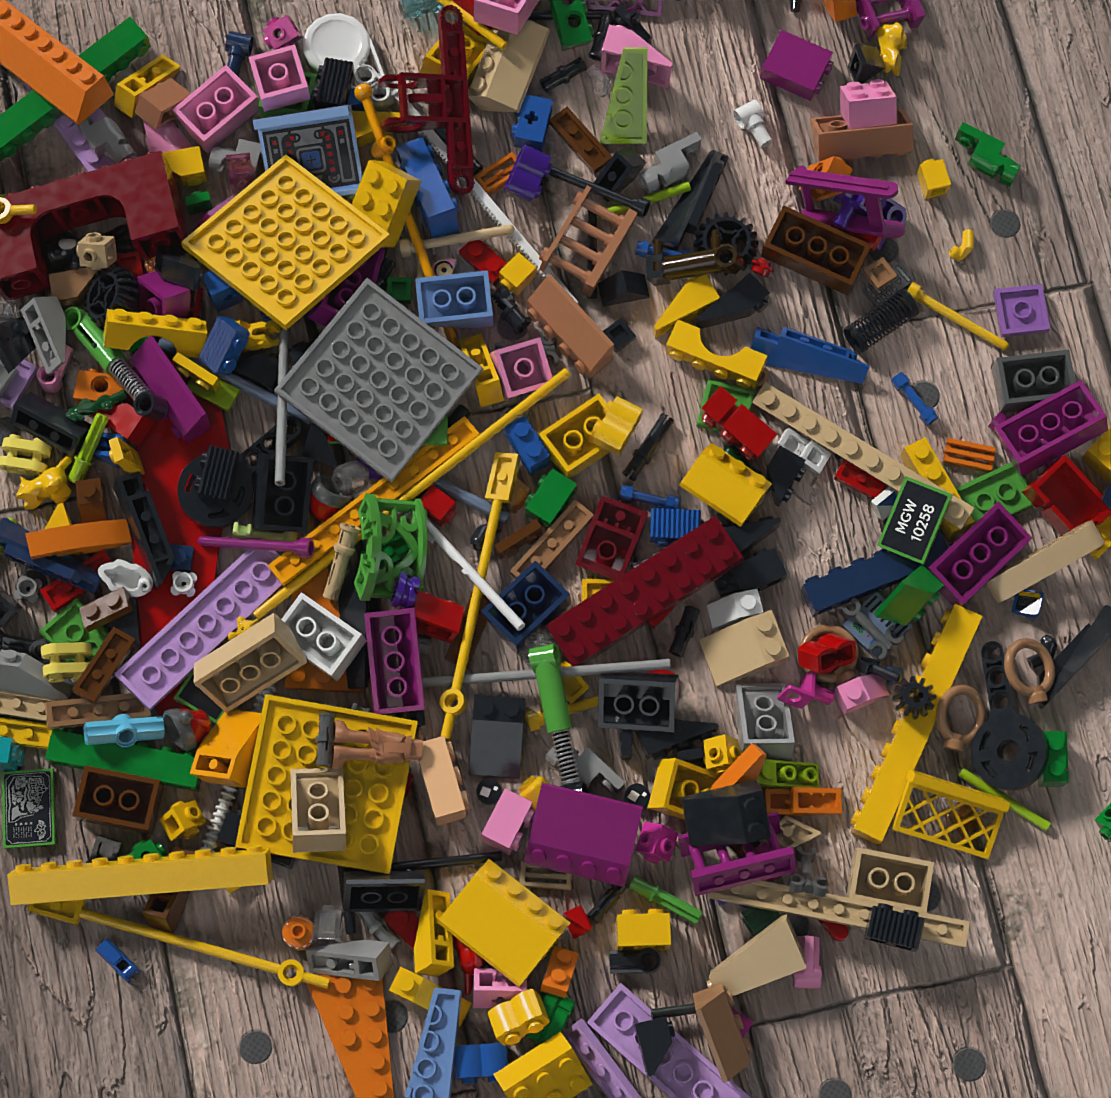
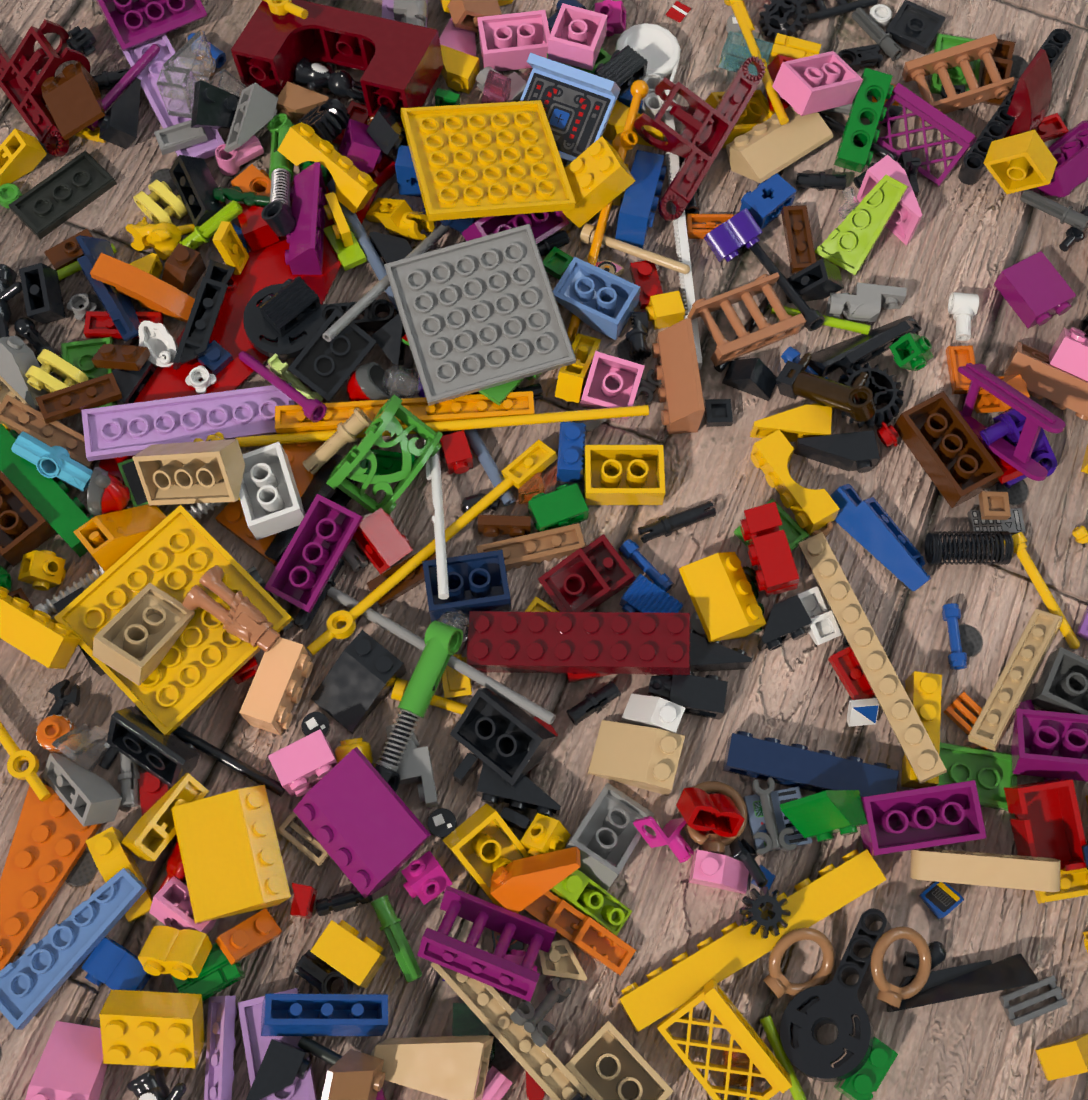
camera: 35 degrees right, 5 degrees down
(96, 251) = (334, 81): tan brick -> none
(224, 346) = (375, 210): blue brick -> none
(278, 910) = (61, 700): none -> black bar
(325, 739) = (208, 562): dark grey pin -> none
(405, 591) = (368, 499): dark purple wheel -> none
(617, 426) = (657, 480): yellow brick -> none
(657, 984) = (324, 1015): none -> blue brick
(727, 815) = (502, 898): black slope -> none
(736, 184) = (912, 351): none -> green brick
(779, 168) = (957, 357): none -> orange tile
(914, 520) = (879, 743): black tile -> none
(979, 402) = (1015, 679): none -> tan tile

